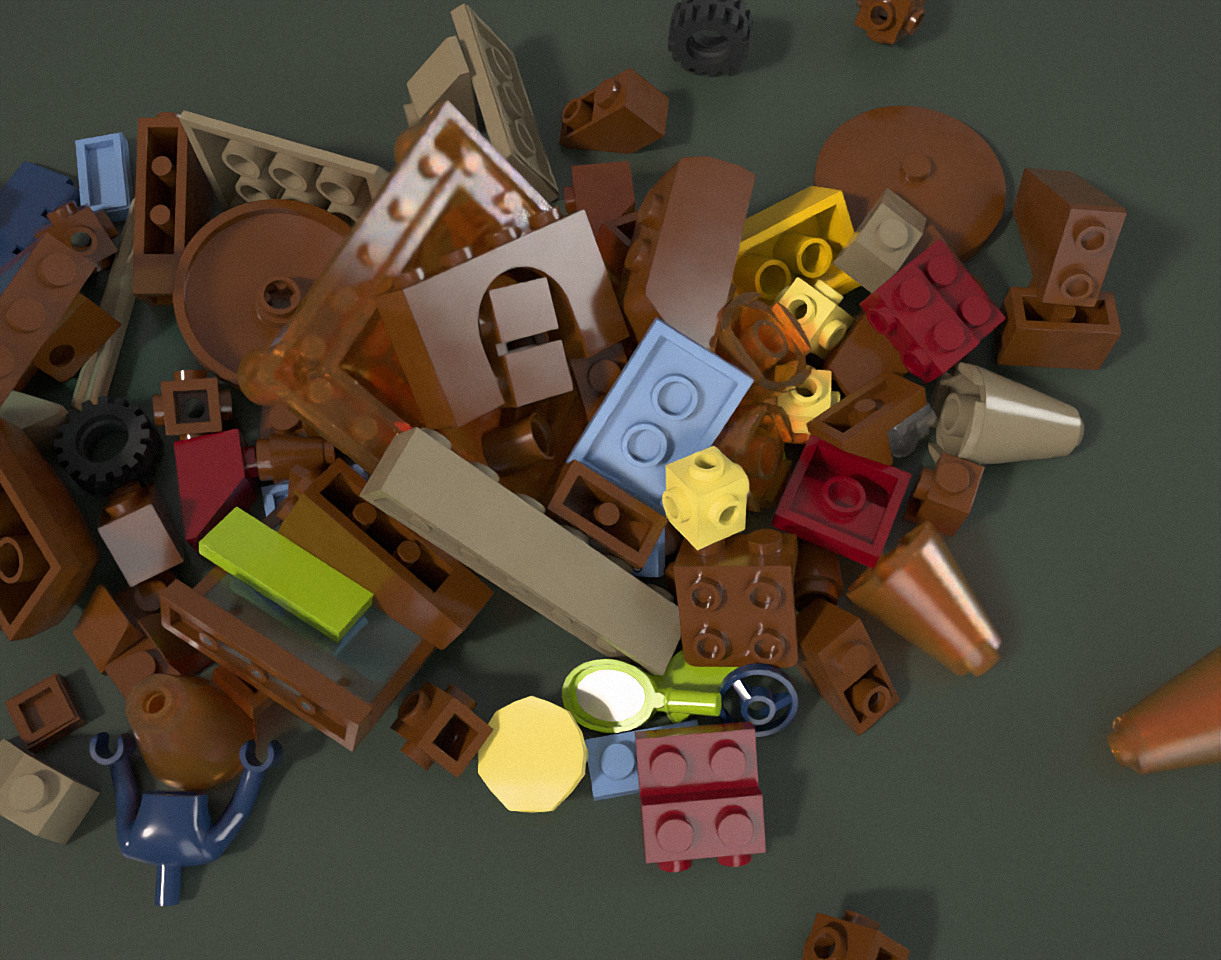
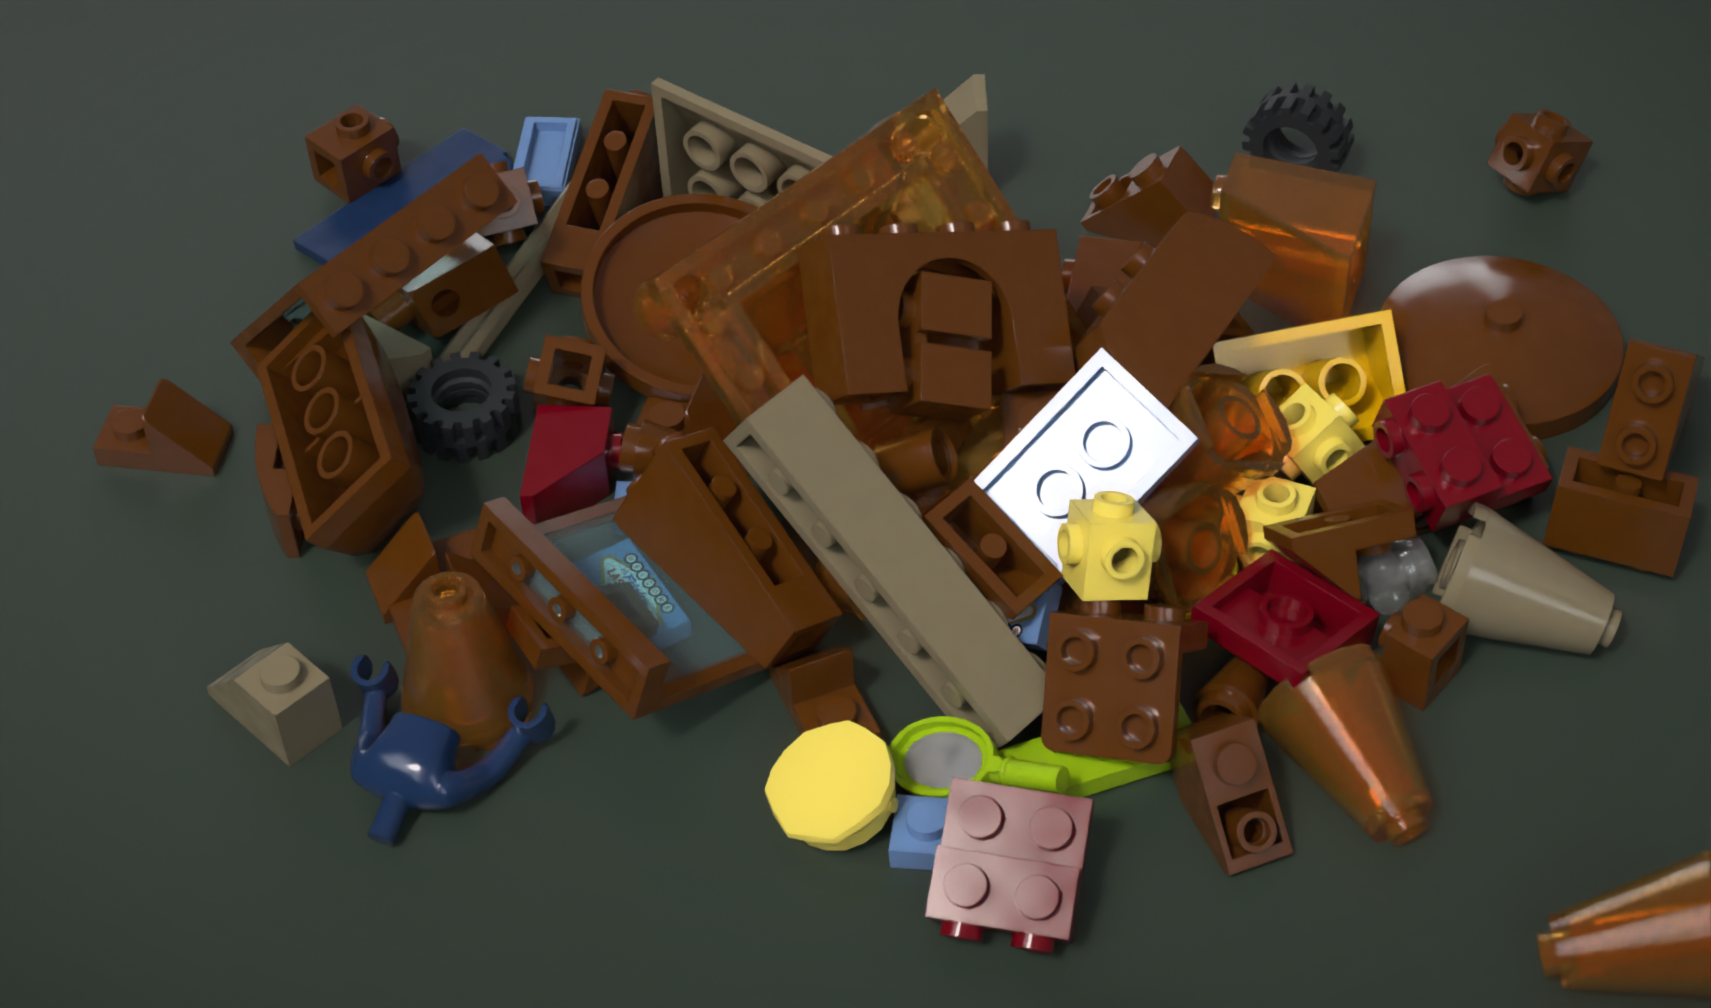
camera: 20 degrees right, 20 degrees down
(45, 712) = (315, 633): reddish brown tile -> none
(140, 532) = (468, 477): slope -> none
(286, 574) = (619, 546): lime tile -> none
(440, 728) = (757, 731): reddish brown brick -> none
(498, 660) = (822, 689): none -> reddish brown slope
(504, 101) = (1023, 144): dark tan tile -> none
(743, 121) = (1313, 224): none -> clear orange slope
(760, 693) = (1130, 800): dark blue piece -> none
(881, 241) = (1423, 357): dark tan slope -> none

